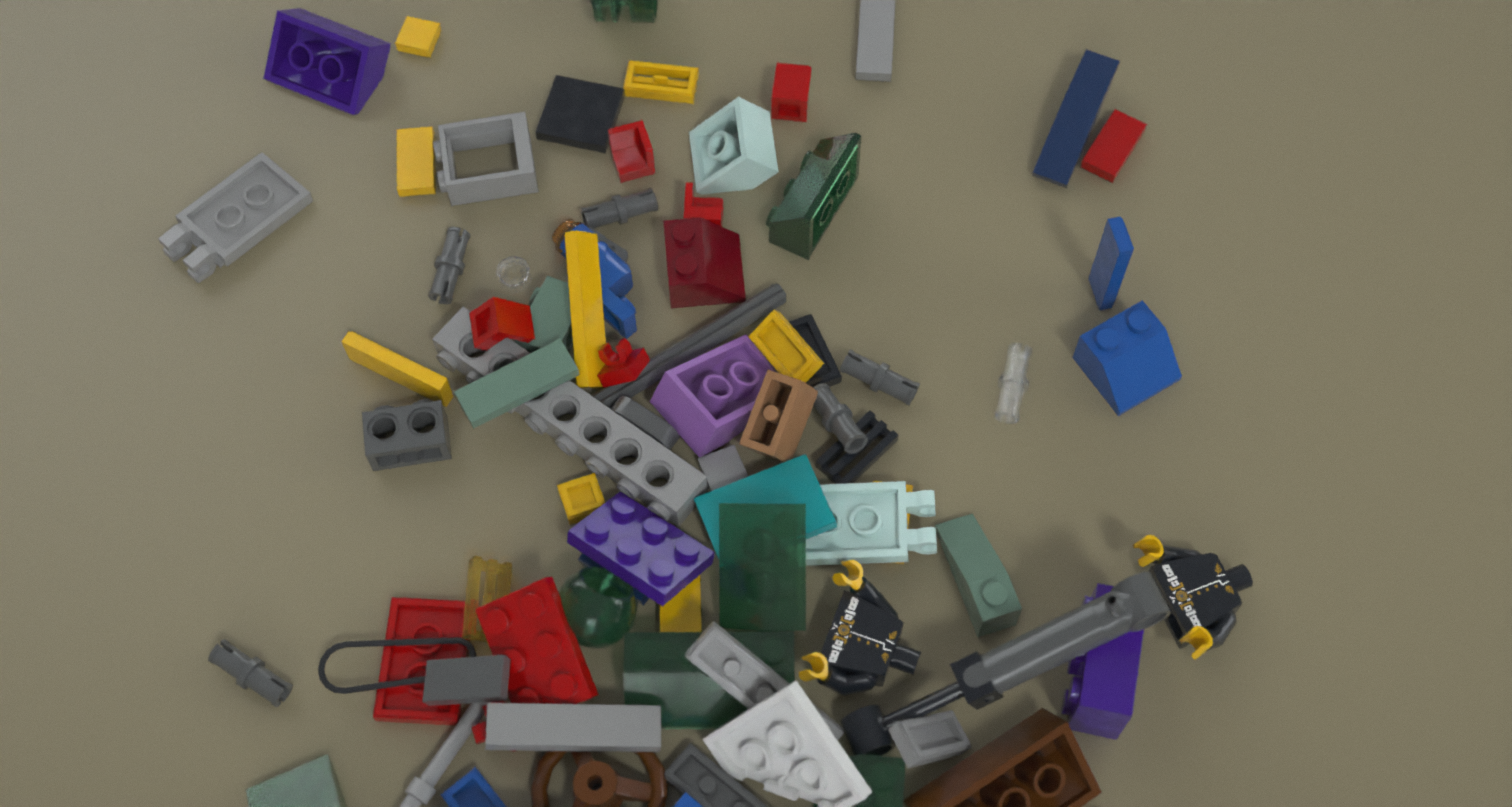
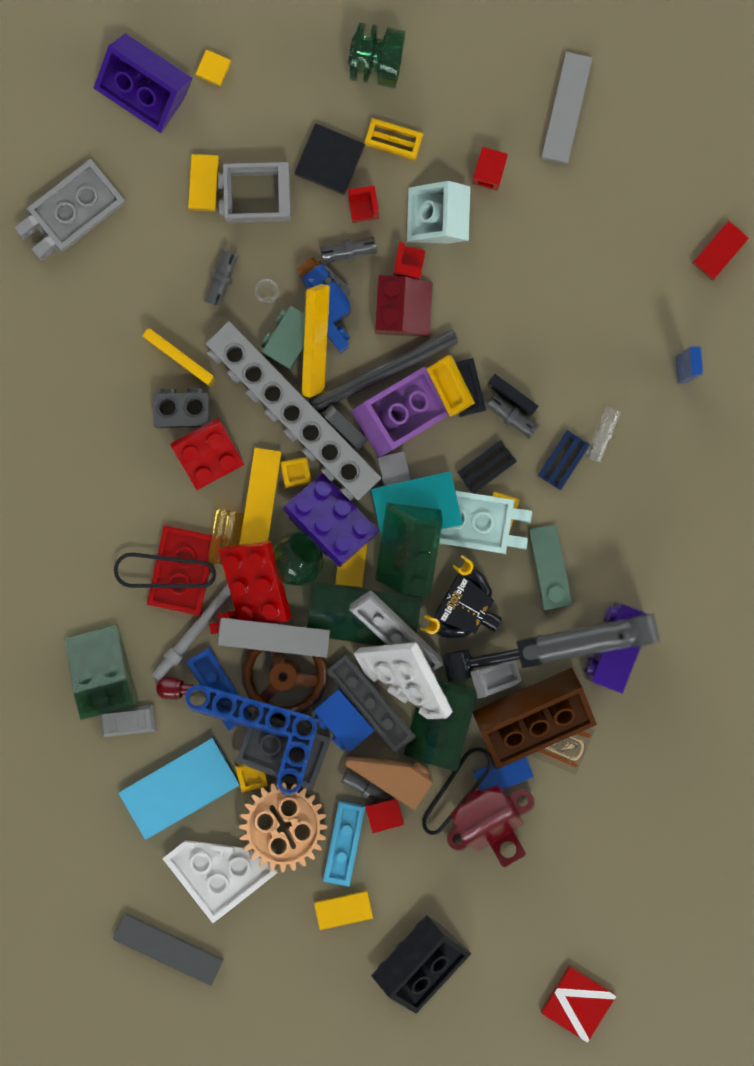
camera: 10 degrees right, 25 degrees up
(250, 673) = (69, 563): dark grey pin -> none
(448, 485) = (207, 454): none -> red plate
(466, 680) = (208, 596): dark grey tile -> none
(501, 320) = (255, 344): red panel -> none
(516, 383) = (261, 390): sand green tile -> none
(533, 528) = (261, 496): none -> yellow tile
(622, 366) = (335, 381): red tile -> none
(778, 417) = (436, 442): medium nougat brick -> none
(815, 194) = (491, 263): clear green slope -> none
(838, 420) = (477, 444): dark grey pin -> none
(875, 347) = (512, 395): none -> black tile
(975, 399) = (575, 440): none -> dark blue tile
(1075, 118) = (697, 225): dark blue slope -> none
(1128, 358) = (687, 430): blue slope -> none
(1196, 591) = (687, 608): black torso -> none

